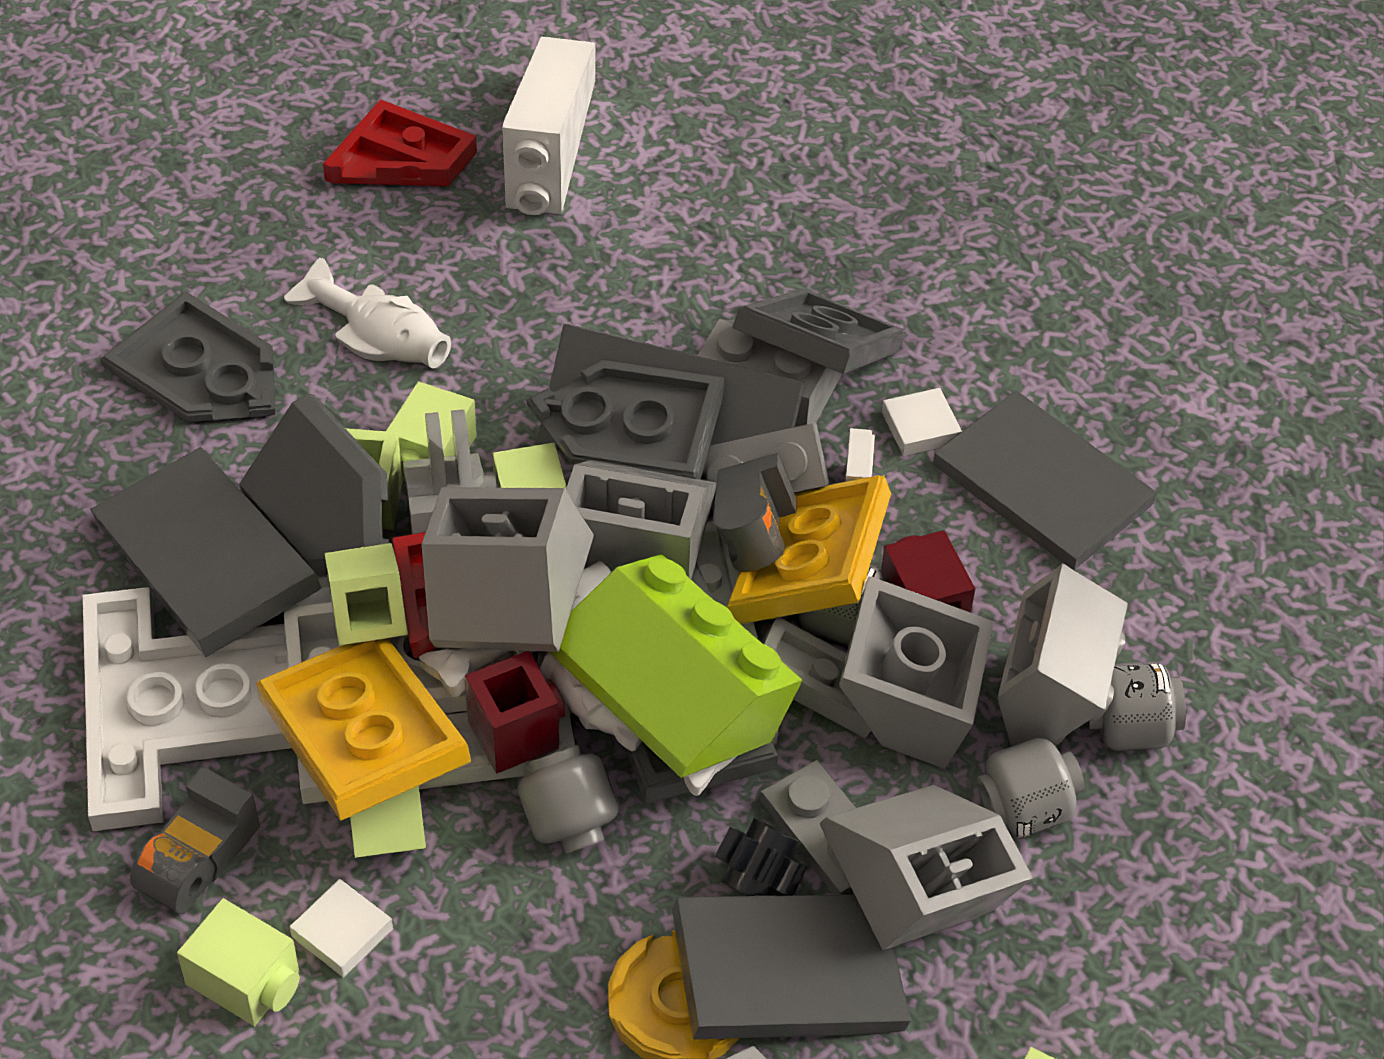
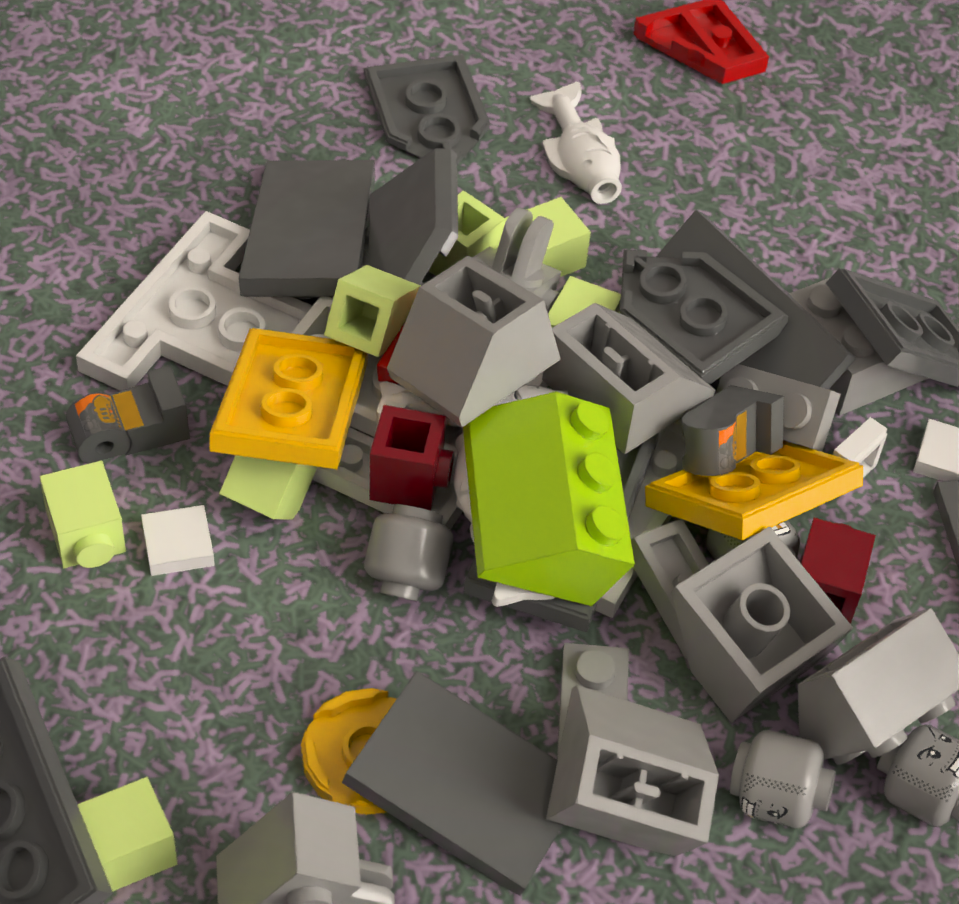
camera: 35 degrees right, 0 degrees up
(547, 125) = (829, 71): white slope -> none
(760, 860) = (512, 690): black gear -> none

